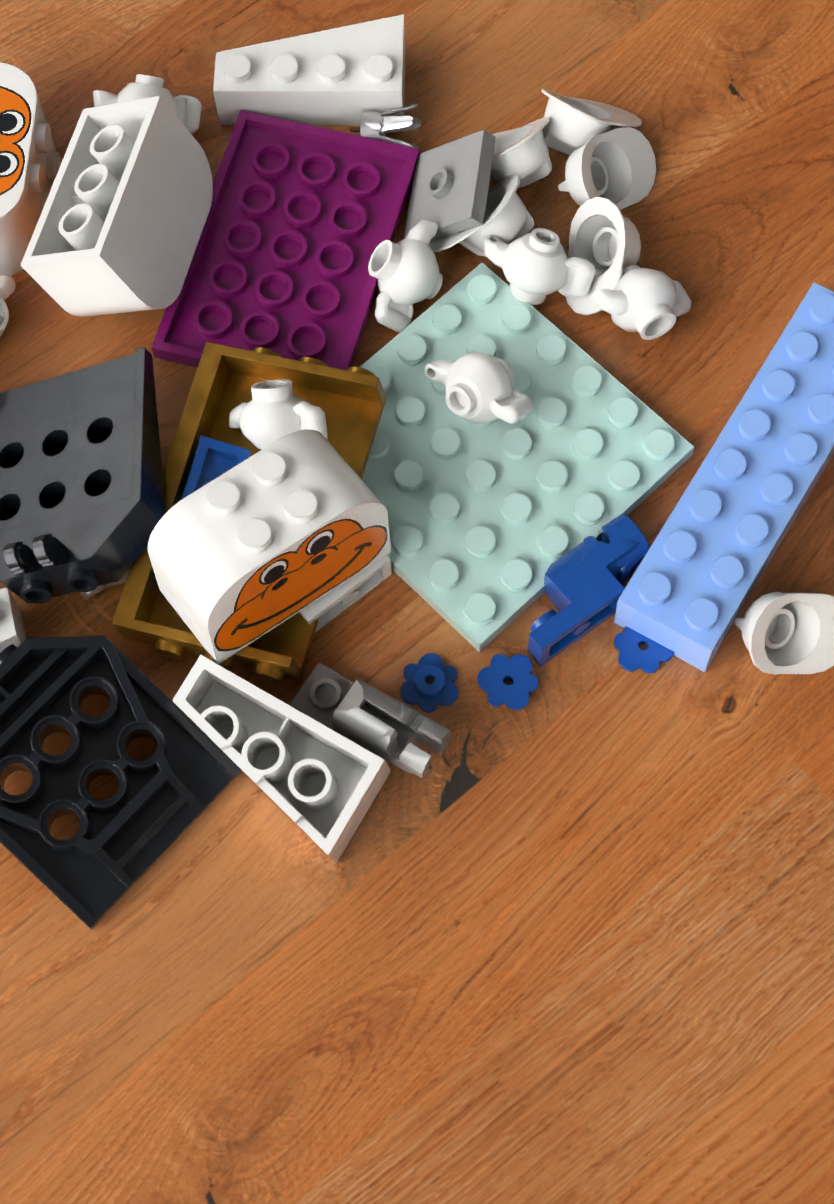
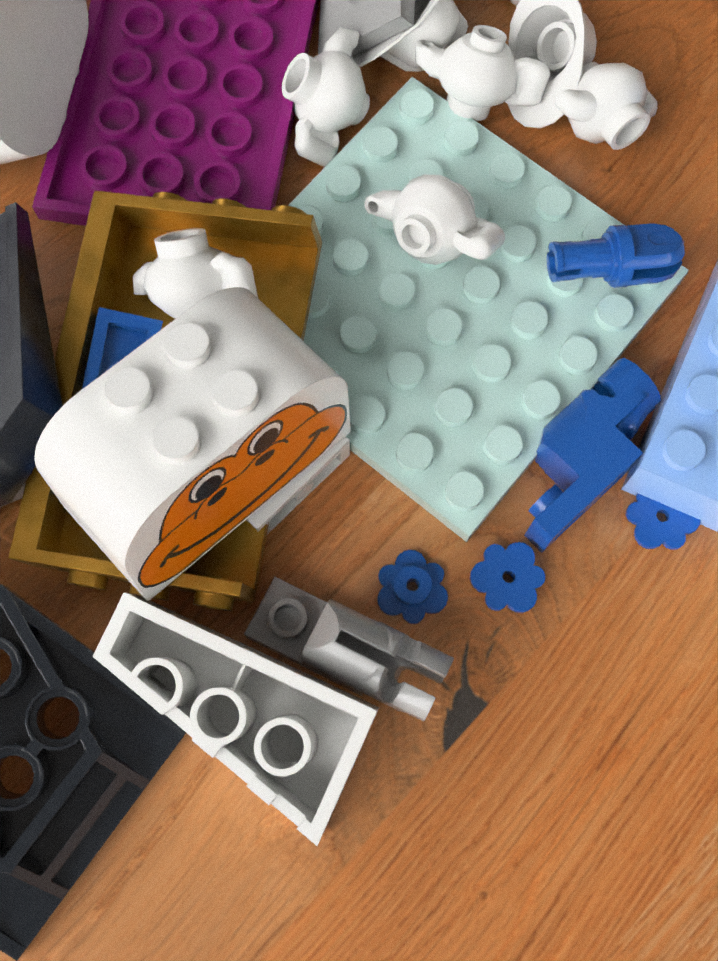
camera: 10 degrees left, 5 degrees up
(633, 430) = (621, 256): none -> blue arm

